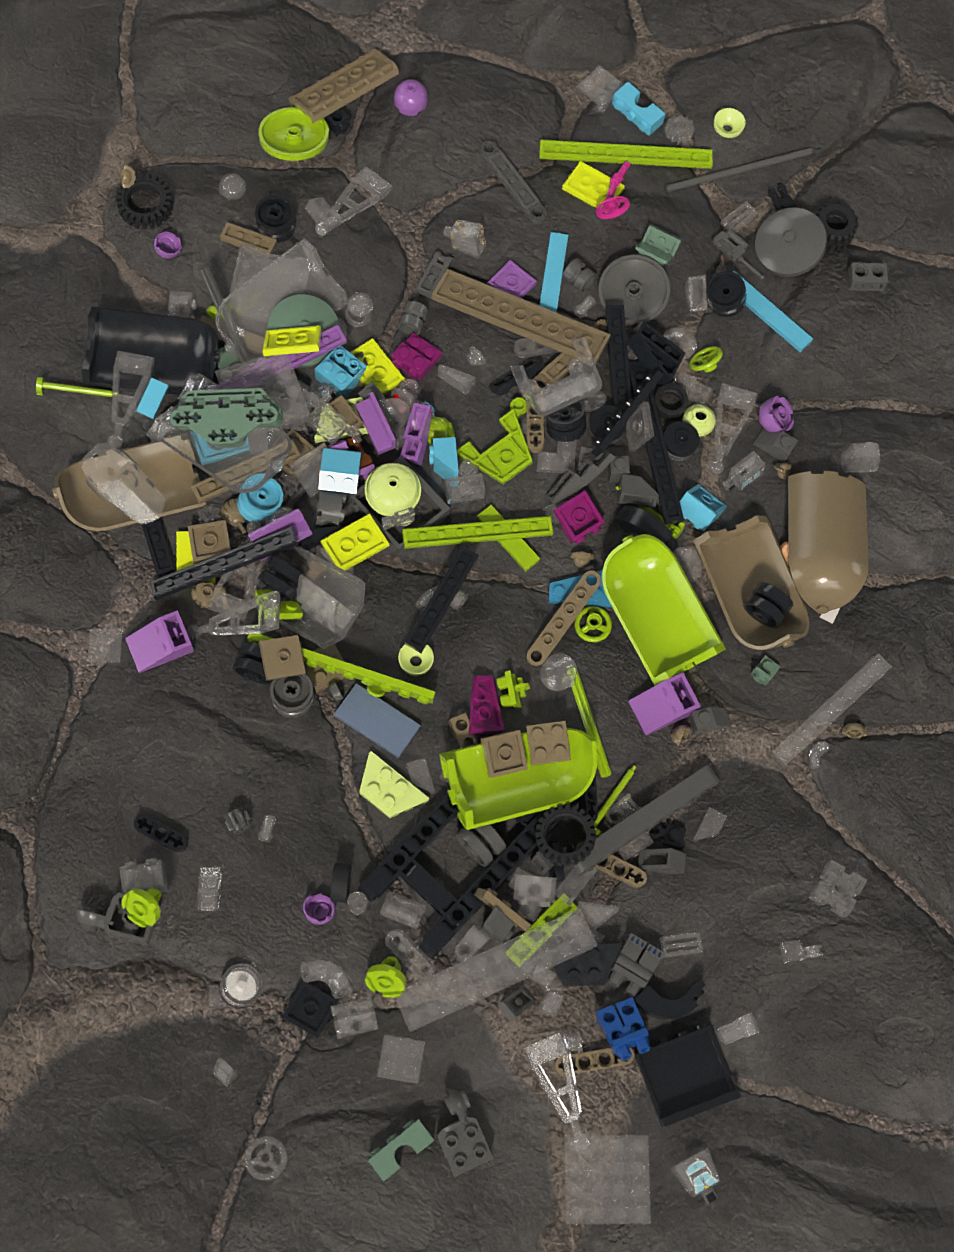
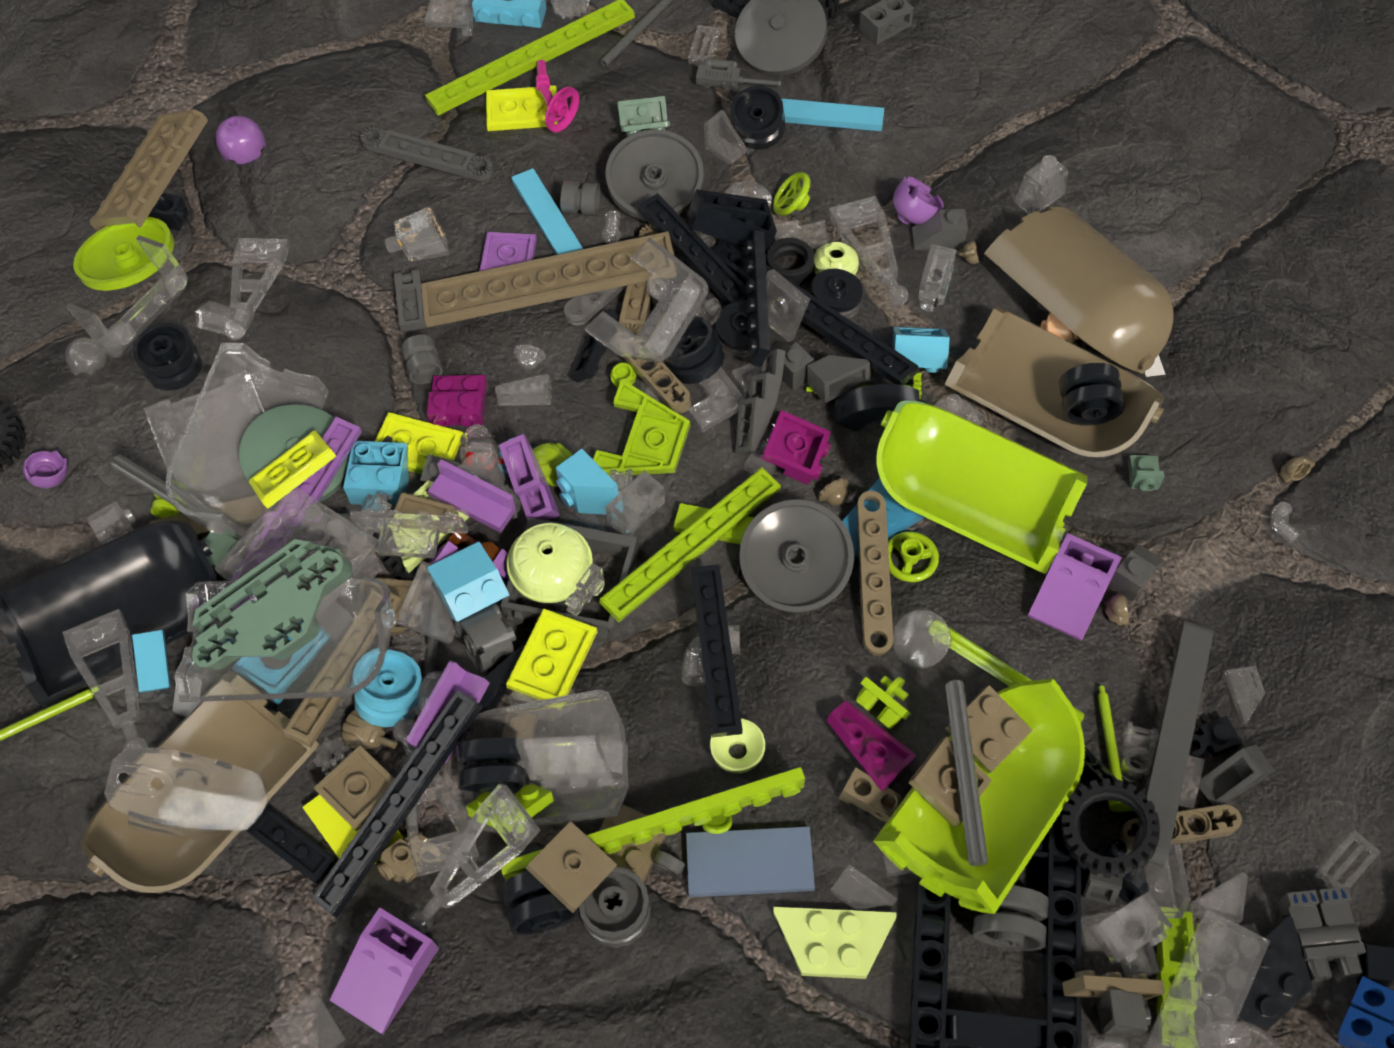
camera: 25 degrees left, 10 degrees down
(240, 236) = (131, 403): dark tan plate -> none
(281, 181) = (145, 312): none -> clear windscreen
(359, 305) = (347, 383): clear helmet -> none
(514, 754) = (966, 773): none -> dark grey axle
(527, 579) = (796, 556): none -> dark grey dish
(831, 710) = (1253, 467): clear plate -> none

